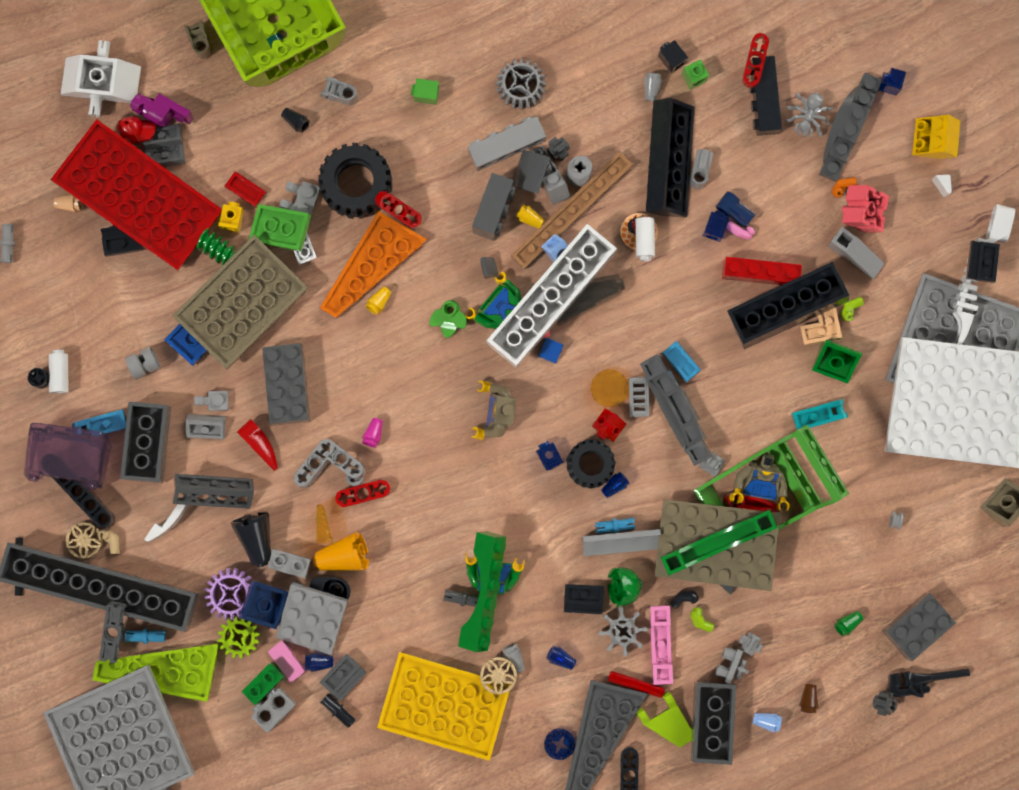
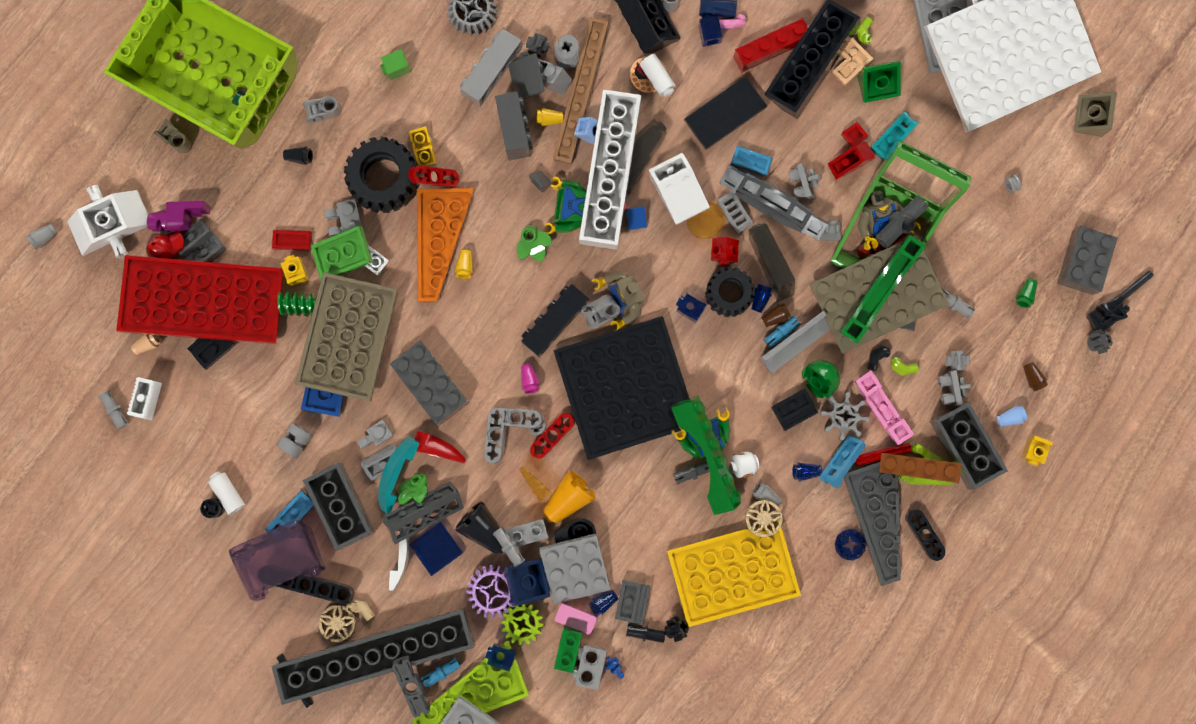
camera: 25 degrees left, 0 degrees up
(36, 57) = (41, 236): none -> light grey cone
(38, 250) = (144, 398): none -> white brick
(203, 662) = (506, 662): none -> brick
(205, 528) = (436, 548): none -> clear blue tile
(217, 466) = (413, 488): none -> bright green plate
(229, 429) = (390, 474): none -> teal slope
(266, 565) = (508, 546): none -> light grey pin
(293, 722) = (614, 666): none -> blue hair
(366, 723) = (676, 629): none -> black gear
(405, 176) = (422, 146): none -> yellow slope
(425, 396) = (555, 320): none -> black brick
(448, 488) = (623, 386): none -> black plate
(471, 412) = (601, 310): none -> light grey piece
(511, 619) = (744, 464): none -> white head
(596, 668) = (842, 461): none -> dark azure plate
(602, 348) = (678, 188): none -> white slope
(618, 508) = (776, 315): none -> reddish brown cone
(643, 459) = (772, 262): none -> clear smoke slope
(658, 715) = (920, 468): none -> dark orange plate
(684, 306) = (725, 113): none -> black tile
(717, 399) = (800, 173): none -> light grey hips
(768, 414) = (851, 160): none -> red slope
(771, 755) = (1029, 452): none -> yellow brick
(774, 494) = (901, 222): none -> dark grey piece
(781, 594) = (957, 304): none -> light grey pin
(785, 393) = (854, 134): none -> red plate

